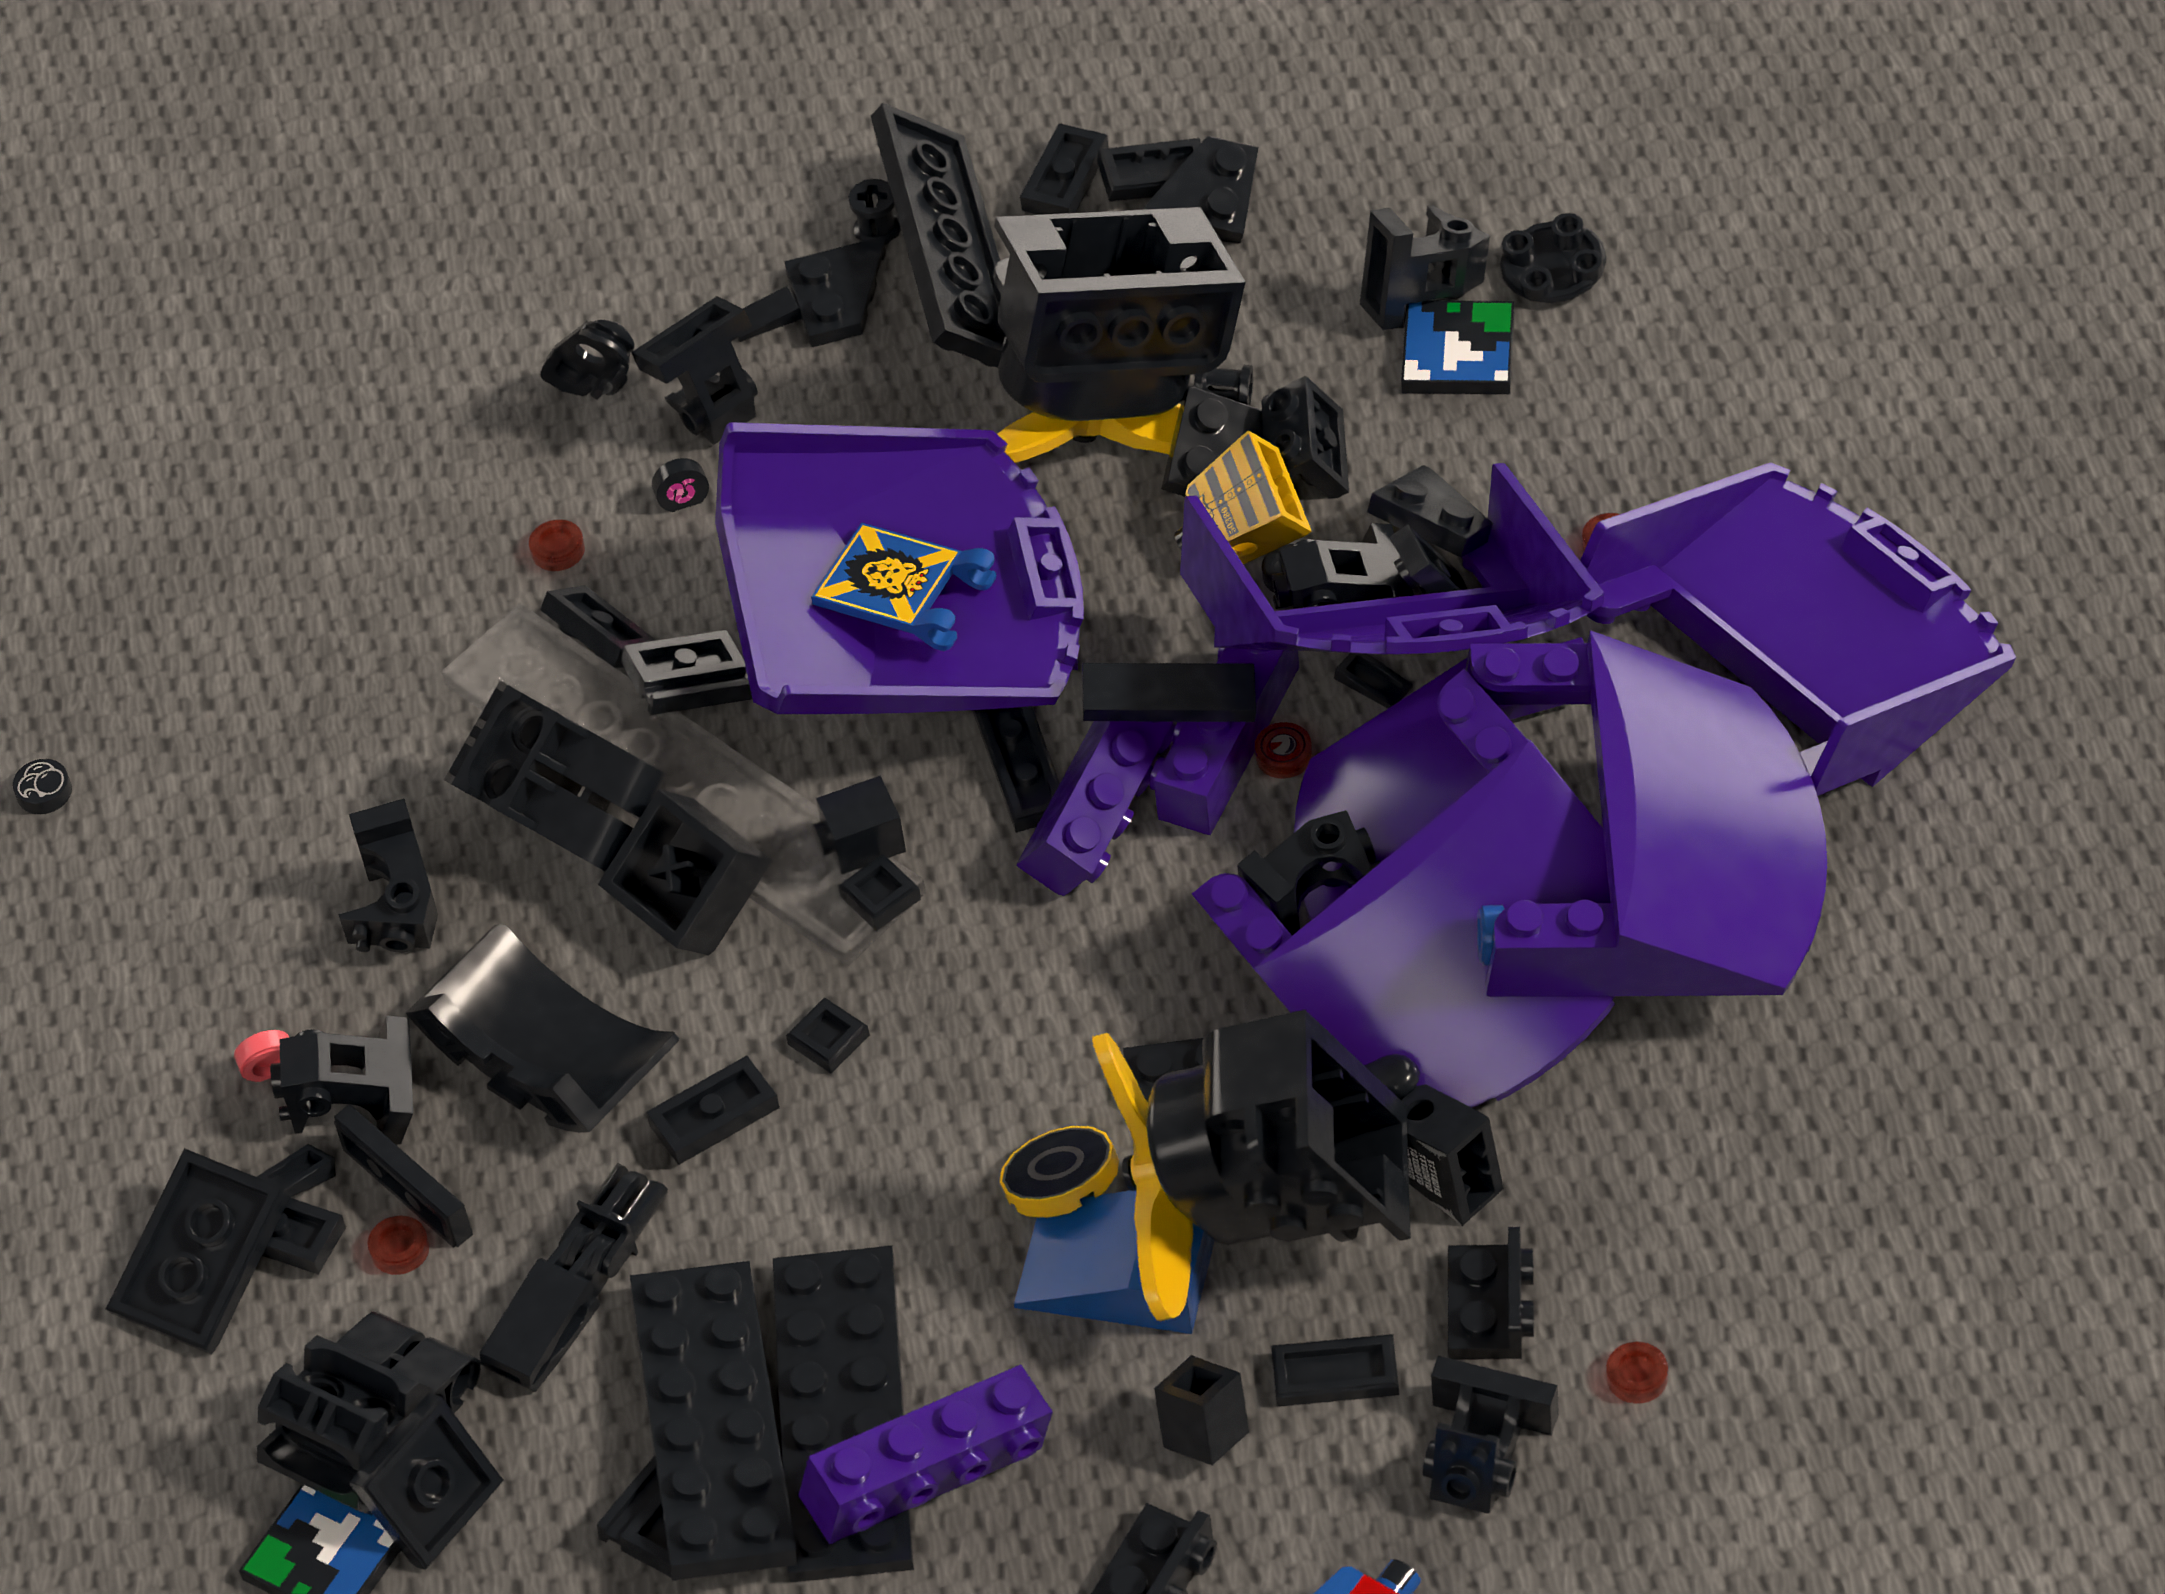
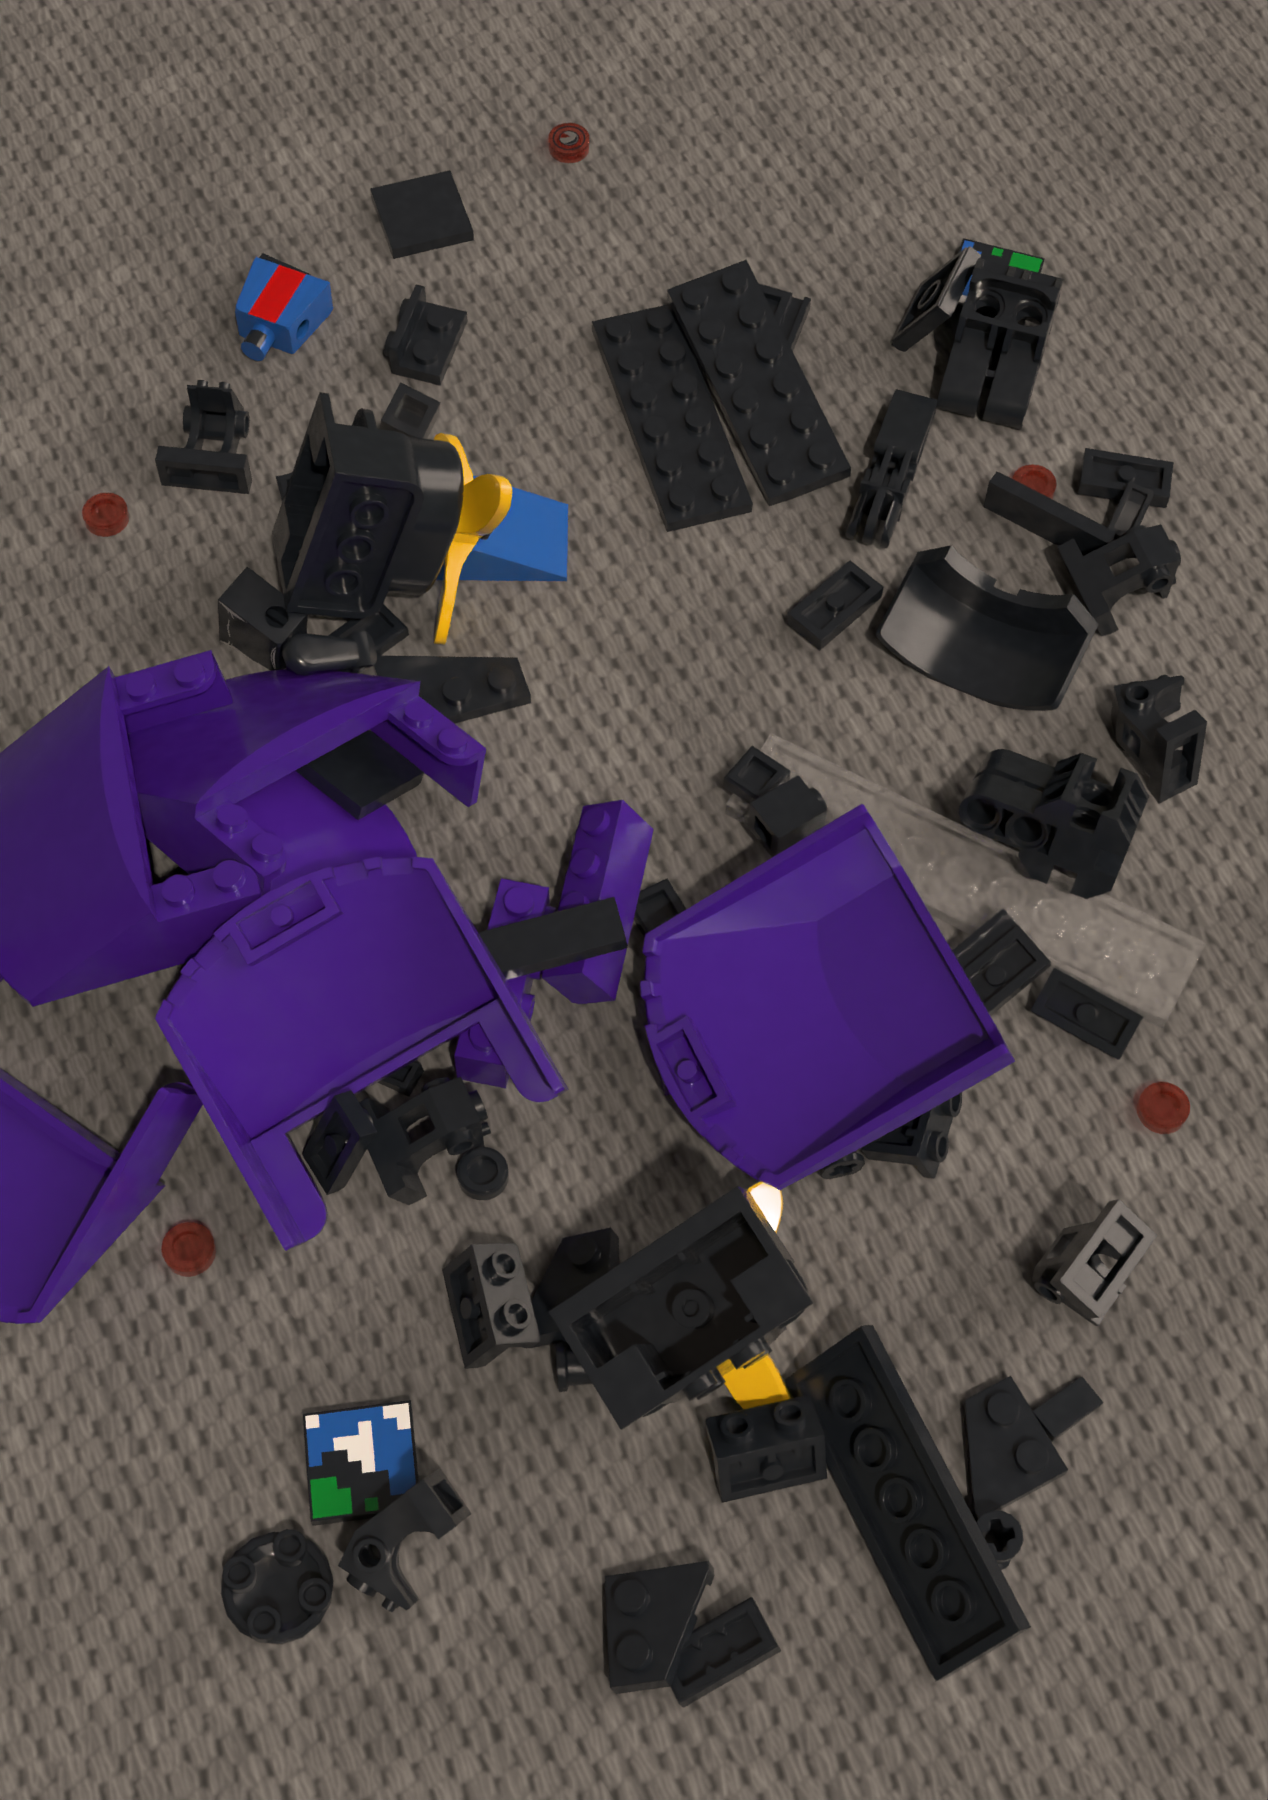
camera: 160 degrees right, 10 degrees up
(198, 1251) = (1173, 443): black tile -> none
(258, 1053) = (1196, 596): coral tile -> none
(579, 372) = (1190, 1244): black piece -> none
(680, 484) = (1072, 1176): black tile -> none
(684, 872) = (917, 759): black brick -> none
(827, 1035) = (767, 684): black tile -> none
(898, 579) = (822, 1020): flag -> none
(924, 1453) = (594, 354): dark purple brick -> none
(1058, 1170) = (554, 584): tile -> none
(1063, 171) = (812, 1637): black plate -> none
(1250, 498) = (527, 1193): yellow torso -> none
(1298, 862) = (410, 807): black tile -> none
(1432, 511) = (354, 1229): black wing -> none
(1485, 924) = (224, 701): blue tile -> none
(1486, 1299) = (218, 544): black bracket -> none

